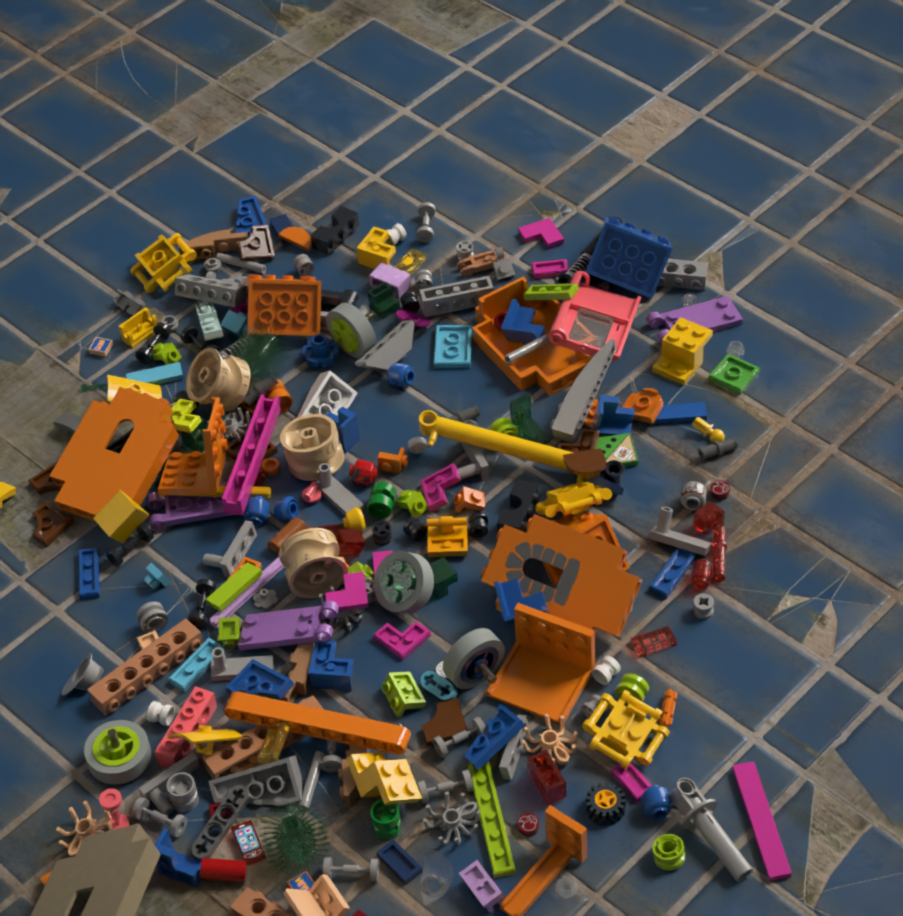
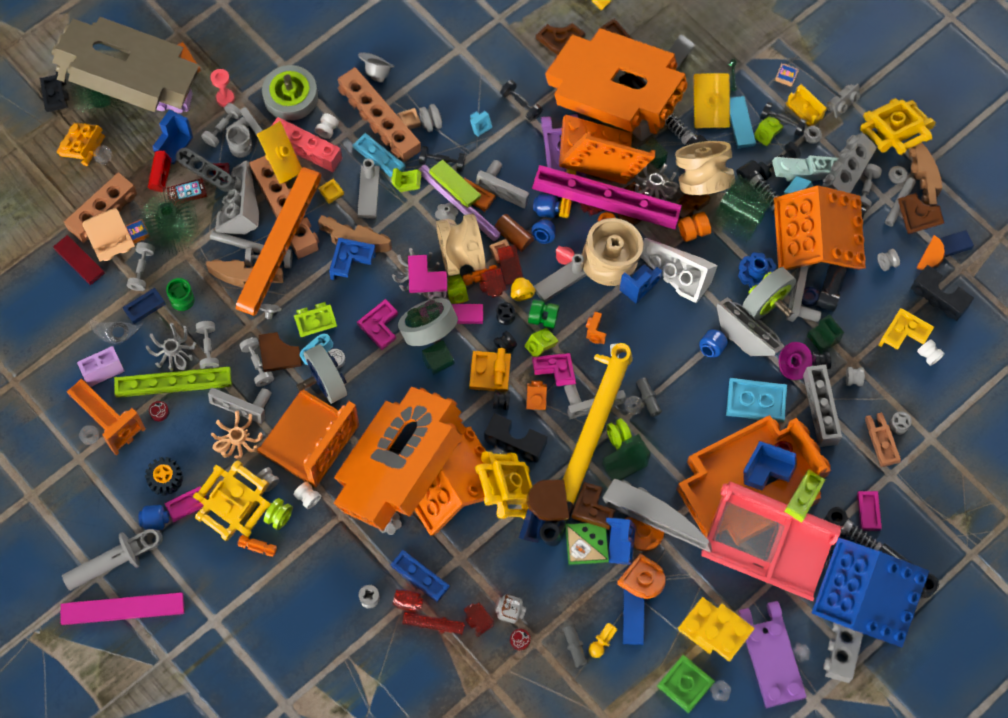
camera: 90 degrees right, 20 degrees up
(84, 828) = (208, 67): light nougat animal -> none
(89, 573) = (497, 71): blue tile -> none
(120, 517) = (542, 86): yellow slope -> none
(182, 416) = (672, 137): neon yellow tile -> none
(249, 215) = (968, 212): blue wing -> none
(260, 389) = (694, 208): dark grey pin -> none
(260, 681) = (339, 200): blue wing -> none
(273, 742) = (263, 205): clear yellow tile -> none
(288, 627) = (397, 223): medium lavender hinge -> none
(363, 472) = (583, 300): red head -> none
(383, 778) = (211, 291): yellow bracket -> none
(396, 278) = (858, 343): lavender brick -> none
(411, 261) = (887, 366): clear yellow tile -> none
(425, 233) = (969, 388): light grey wheel -> none
(497, 734) = (242, 387): blue wing -> none
(503, 267) = (870, 458): light grey plate -> none
(510, 594) = (375, 413): blue panel -> none
(526, 349) = (727, 464): light grey piece -> none
(542, 229) = (933, 510): dark pink tile -> none
(546, 777) = (195, 427): clear red brick -> none
(653, 641) = (338, 545): clear red tile -> none
(662, 534) = (456, 586): light grey piece -> none
(669, 852) = (99, 513): lime wheel -> none

